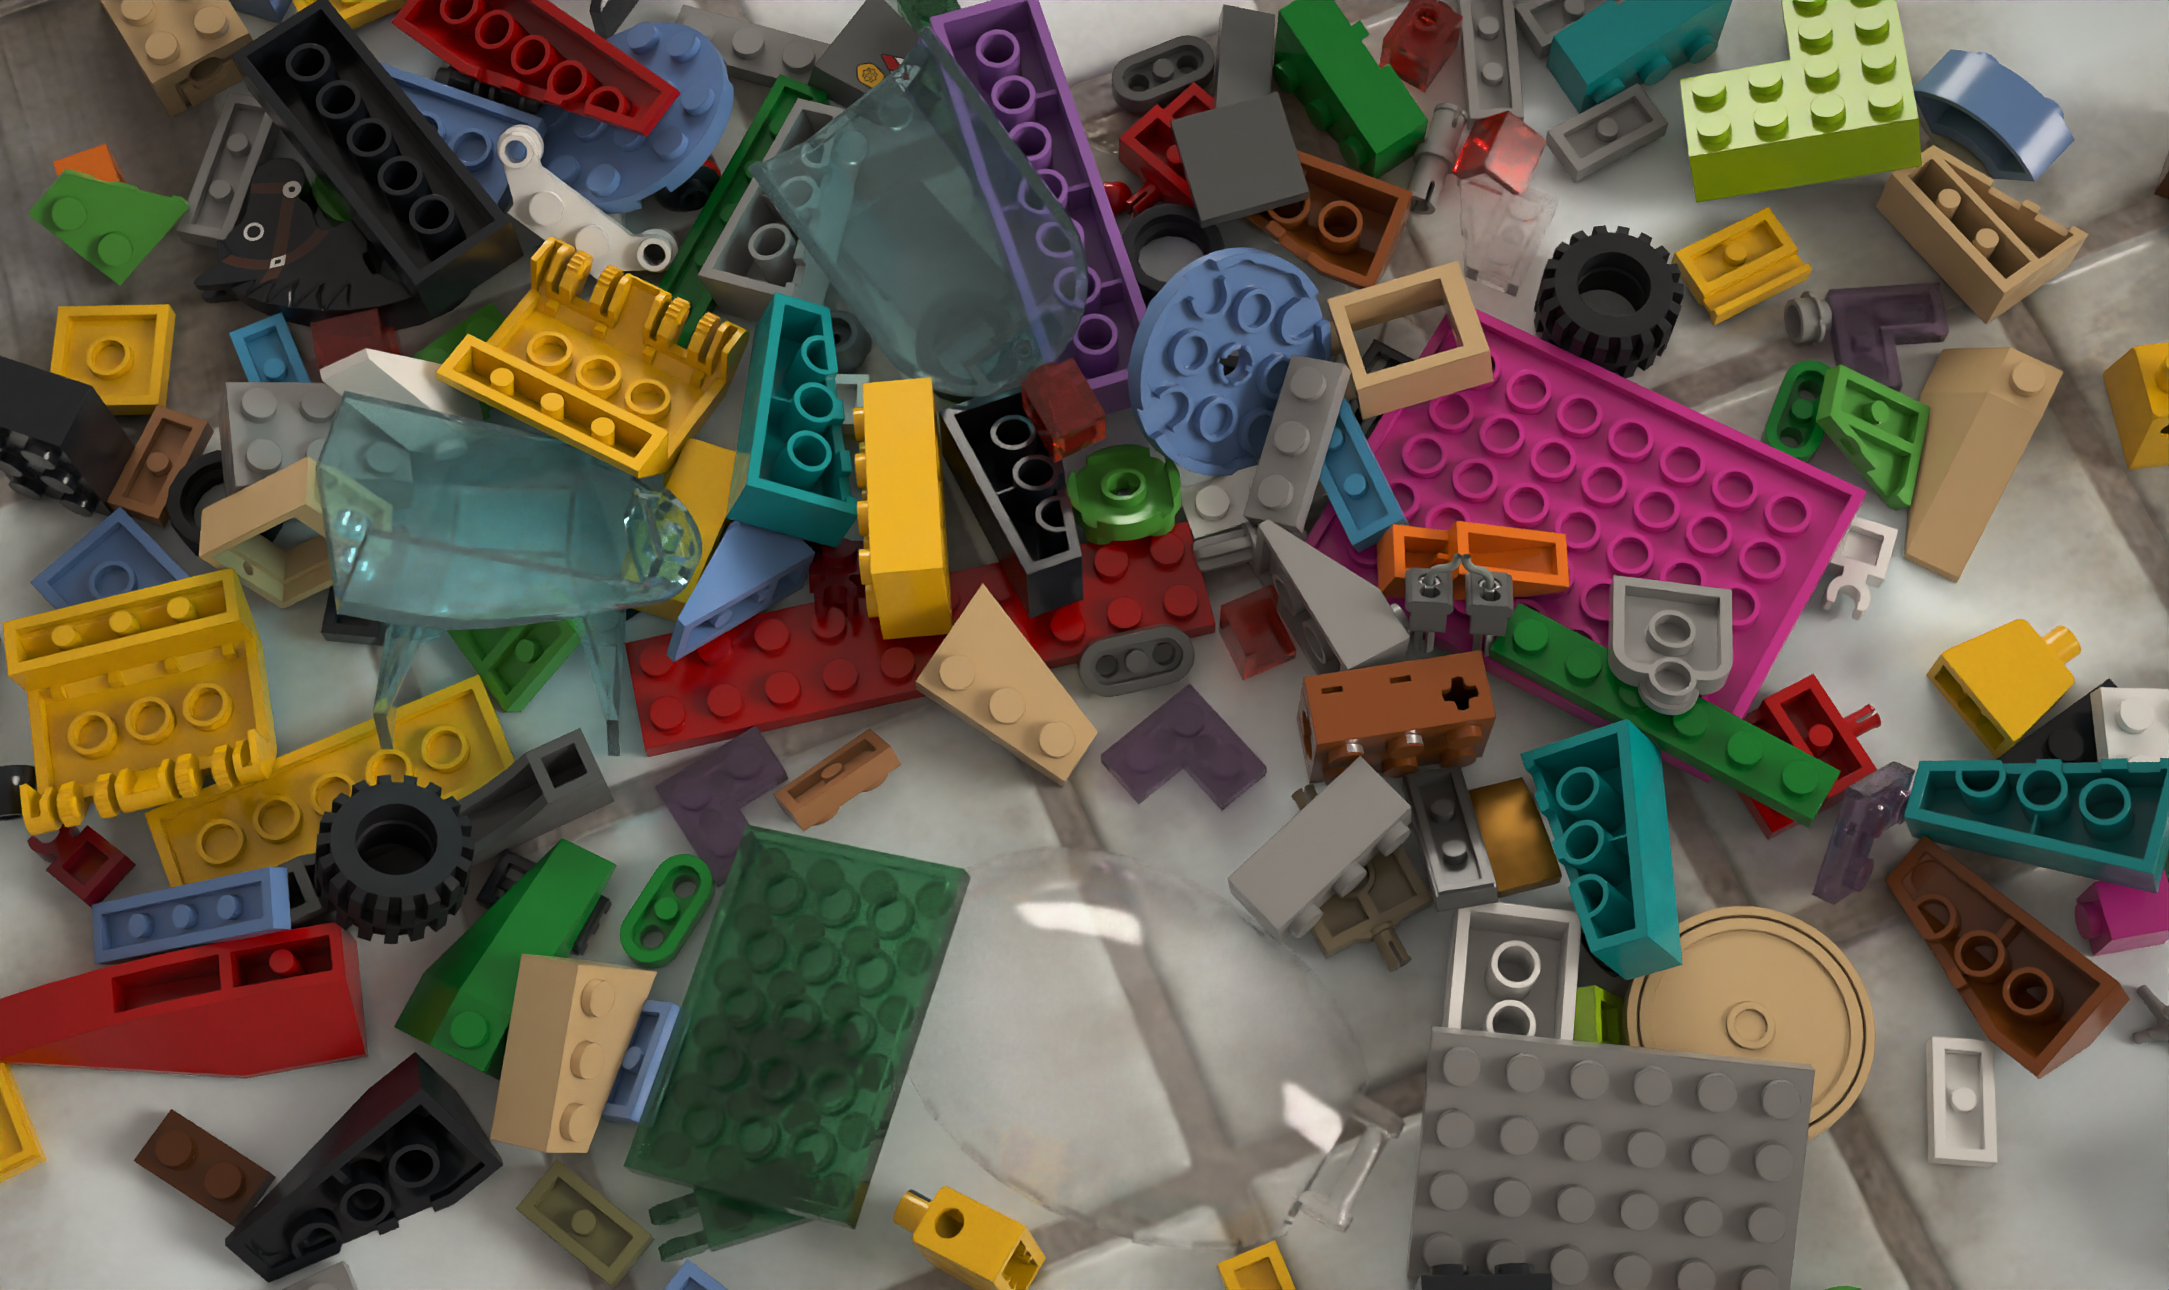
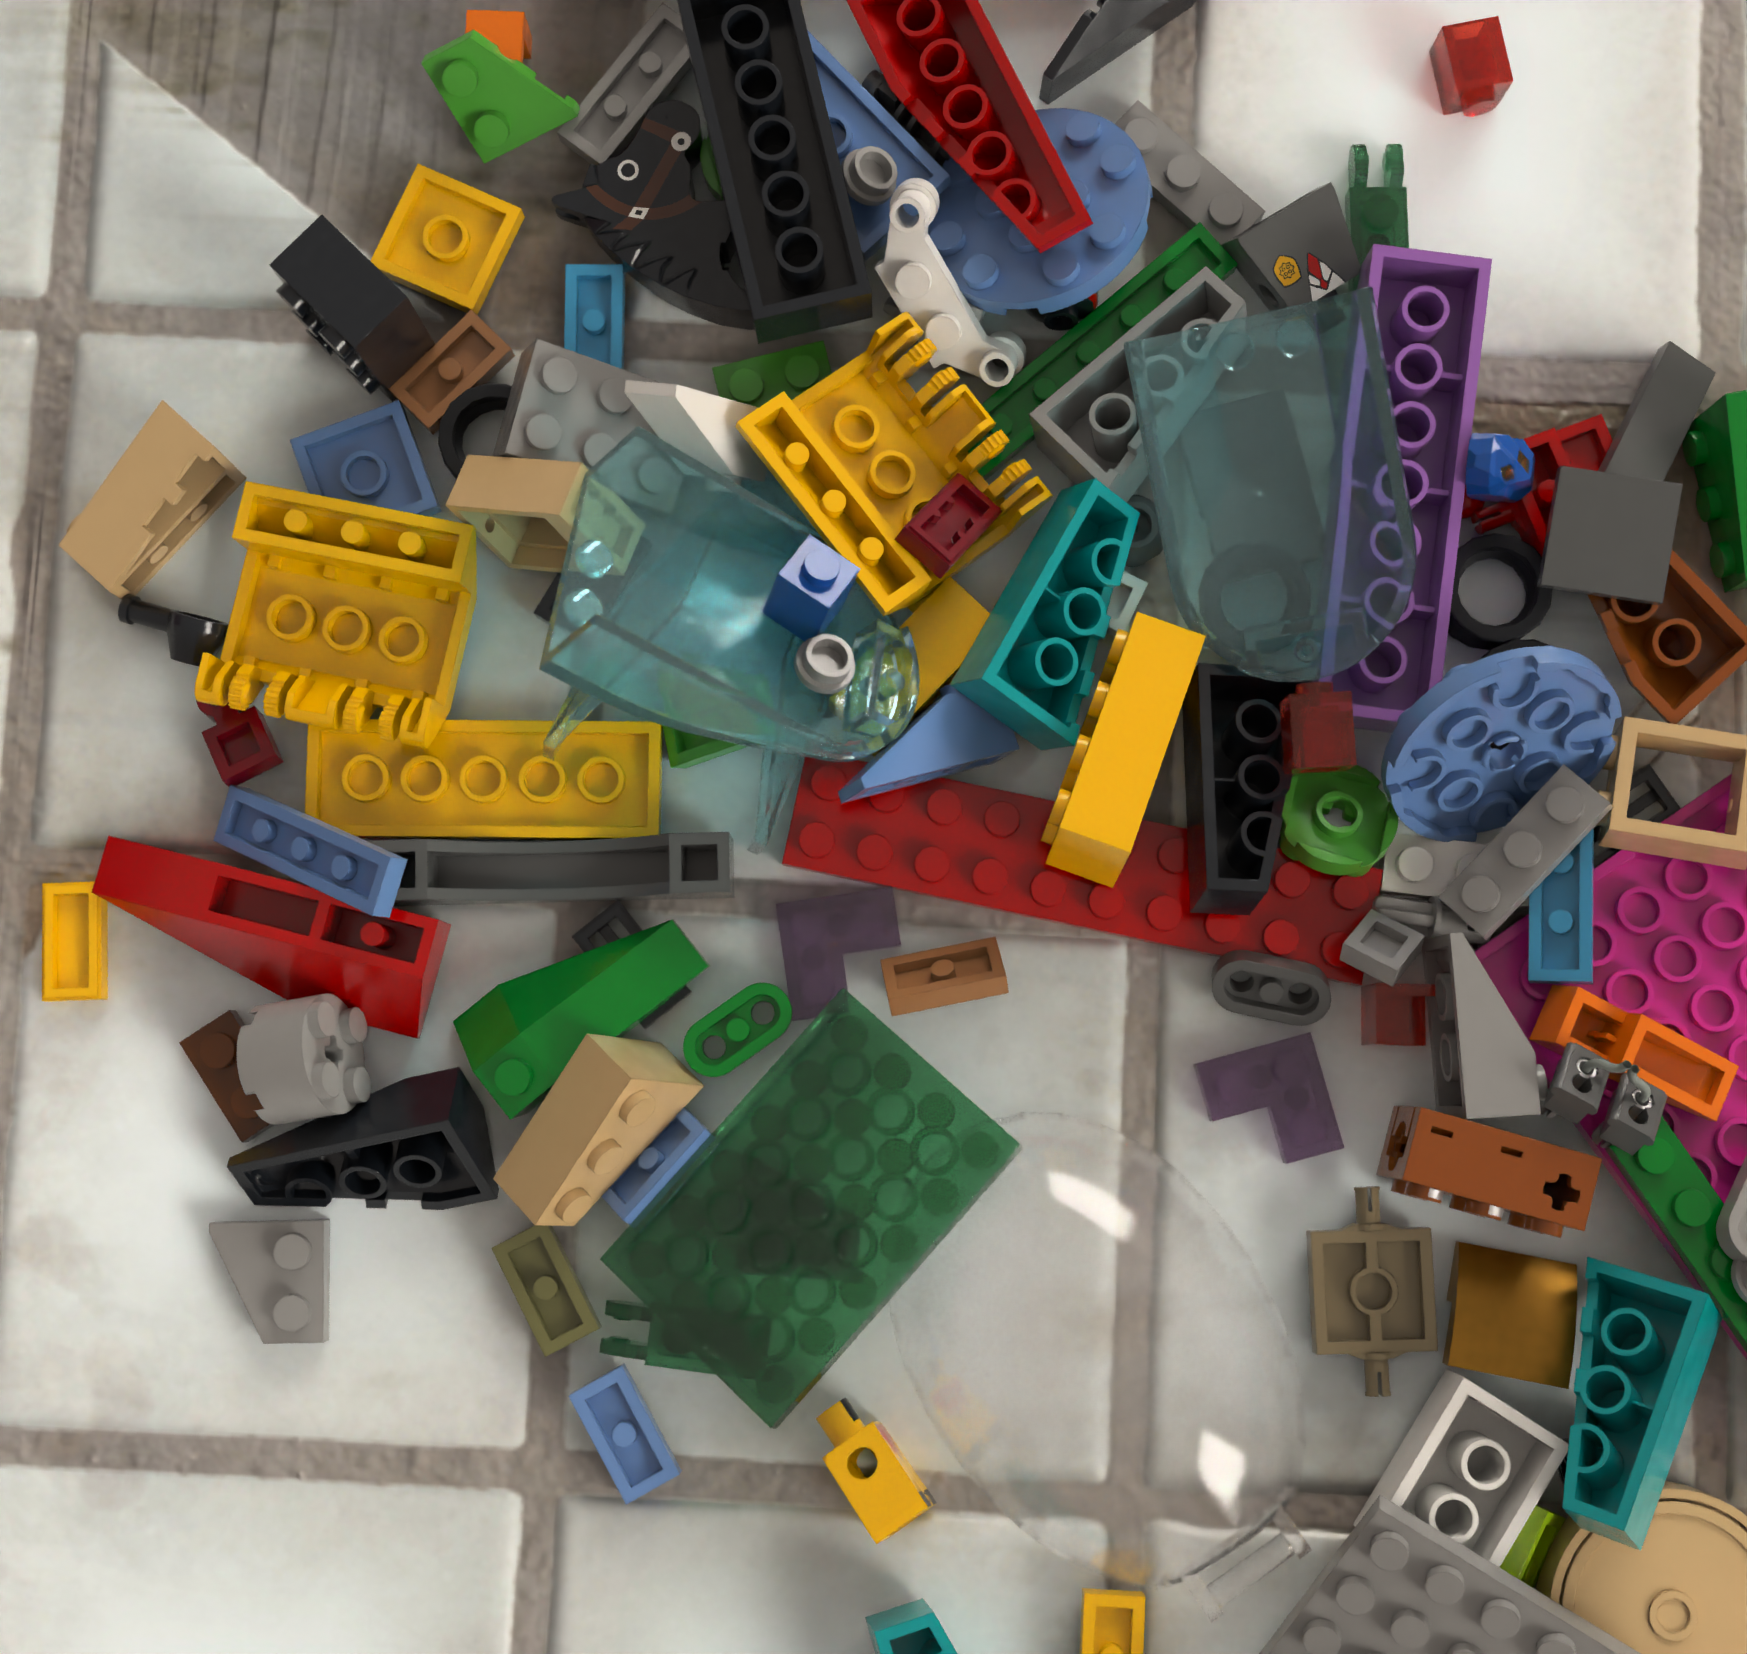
camera: 25 degrees right, 15 degrees up
(261, 1106) = (304, 1058): none -> light grey brick
(351, 333) = (676, 337): clear red brick -> none
(401, 816) = (537, 844): black tyre -> none
(472, 141) = (869, 175): none -> light grey plate
(563, 483) = (810, 589): none -> blue brick
(602, 535) = (825, 664): none -> light grey plate
(665, 387) = (948, 525): none -> dark red plate
(836, 576) = (1031, 778): dark red plate -> none
(1006, 690) = (1136, 972): tan wedge -> none
(1122, 150) = (1498, 468): none -> blue rock
(1160, 74) = (1571, 387): dark grey plate -> none
(1213, 576) = (1382, 947): none -> light grey plate
(1322, 851) = (1359, 1269): light grey brick -> none
(1449, 839) = (1481, 1308): dark grey tile -> none

